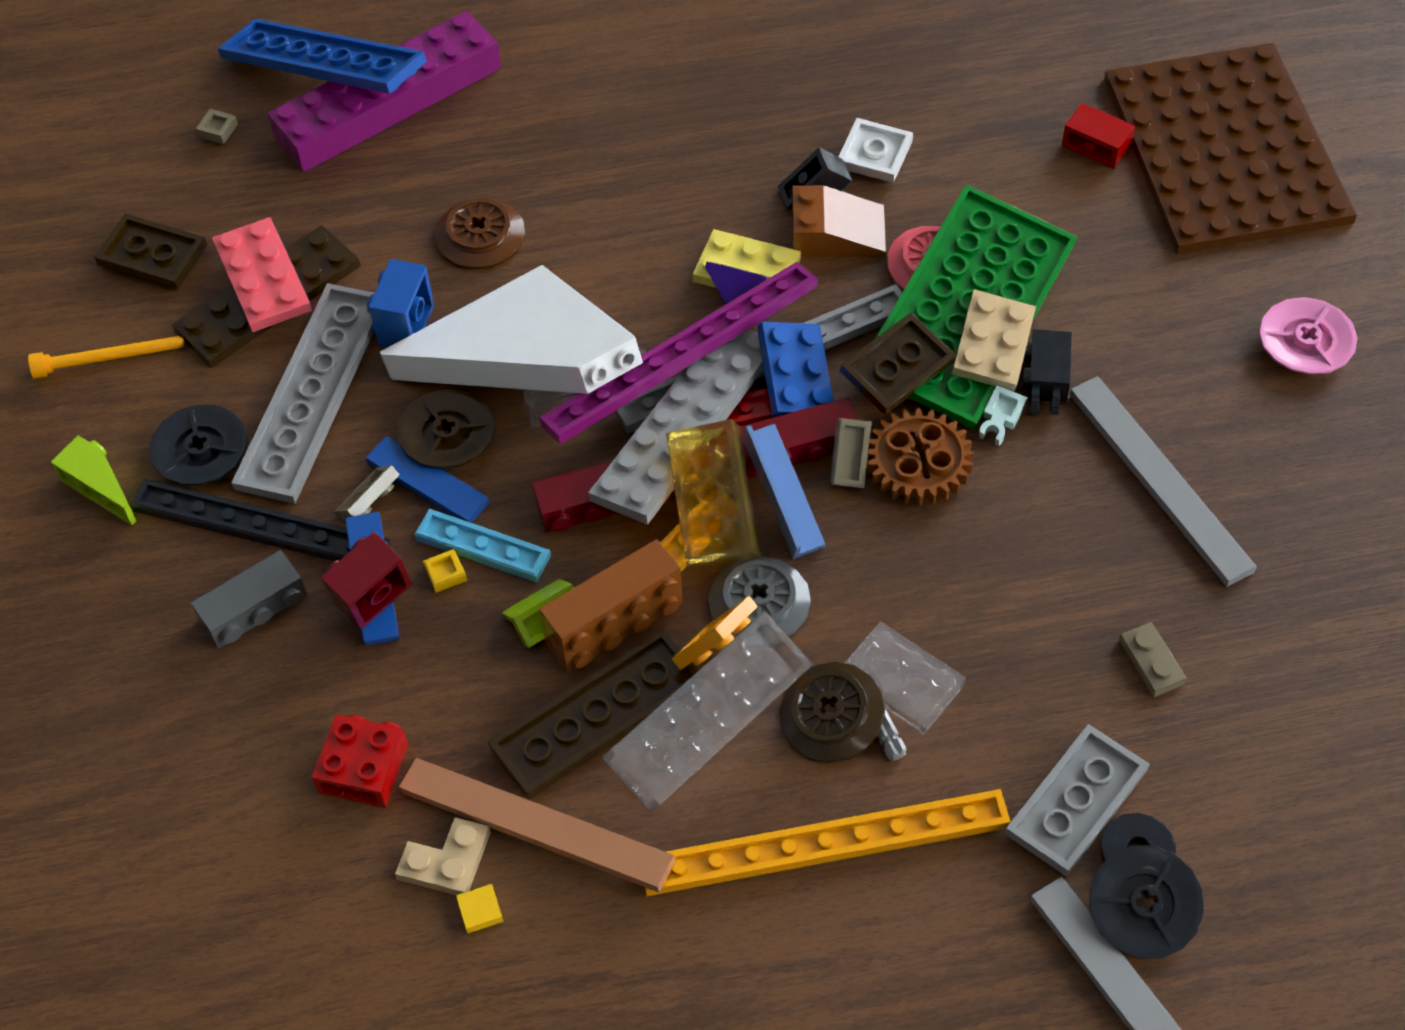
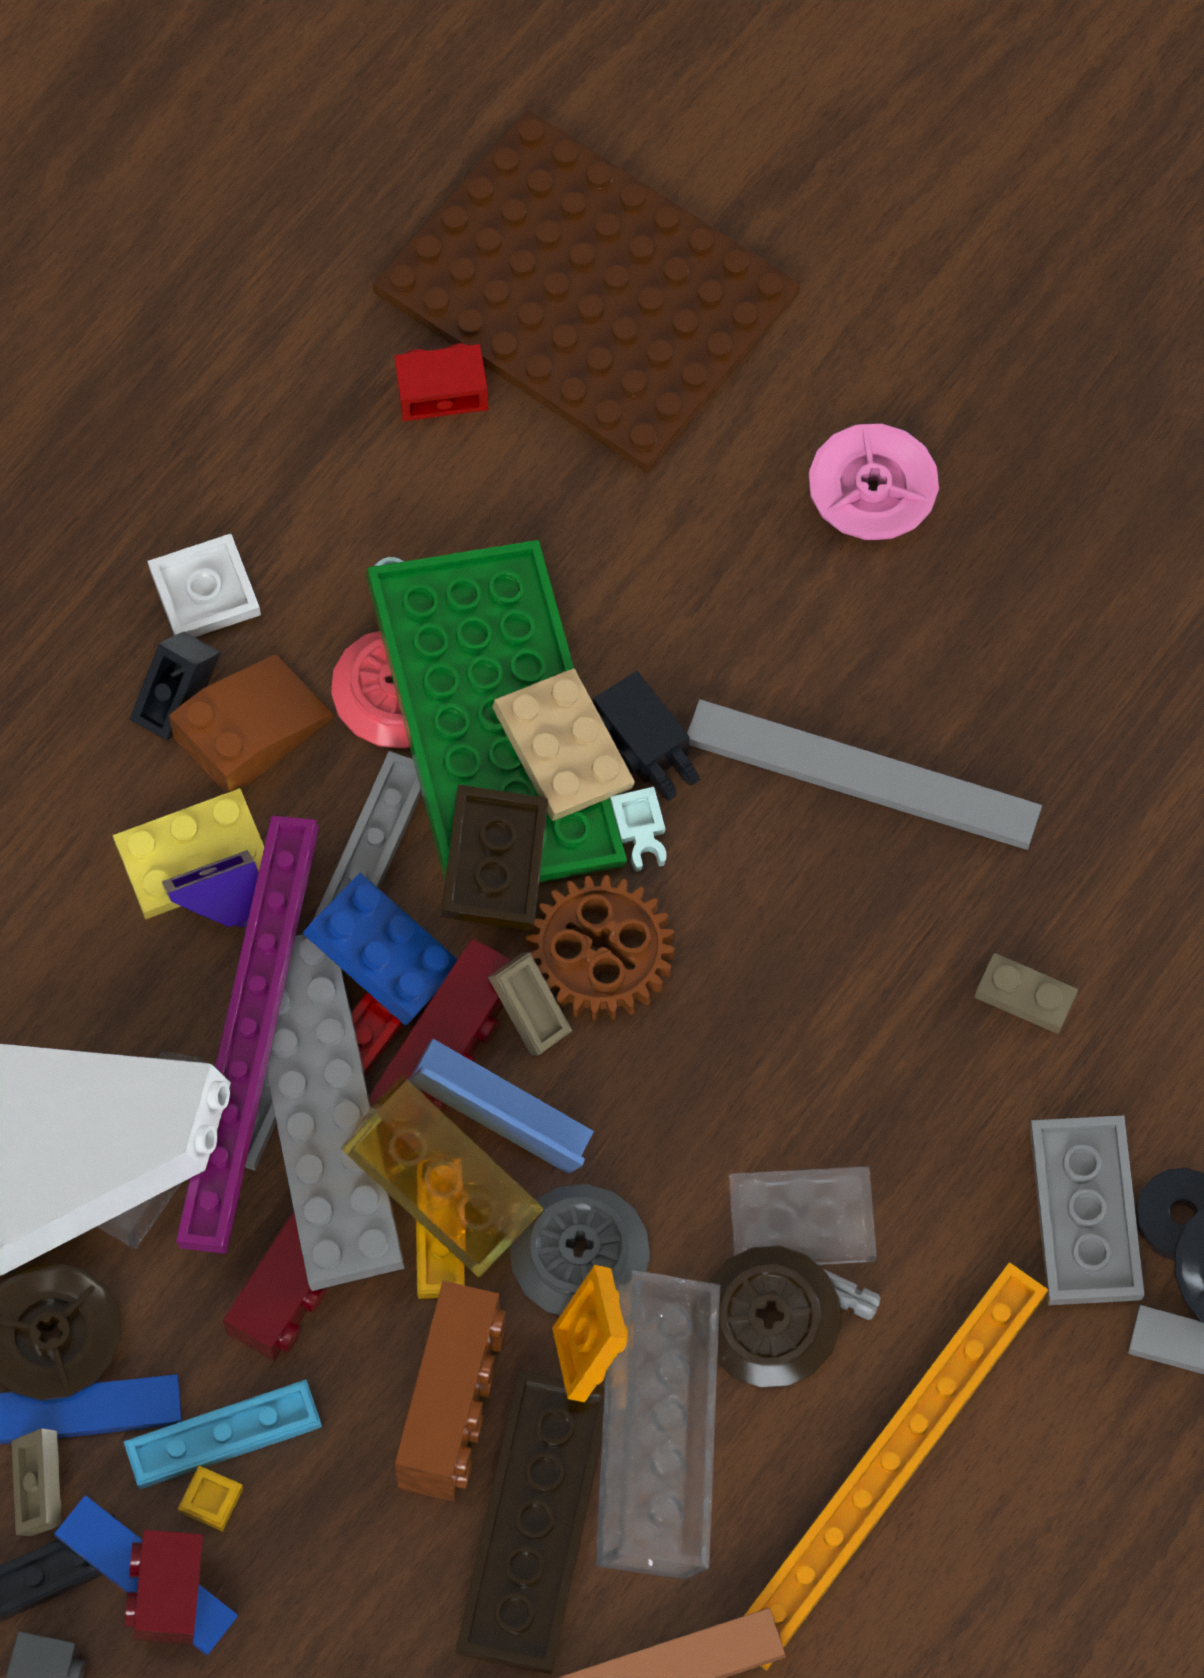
camera: 45 degrees left, 10 degrees up
(526, 613) = (365, 1454): lime panel -> none

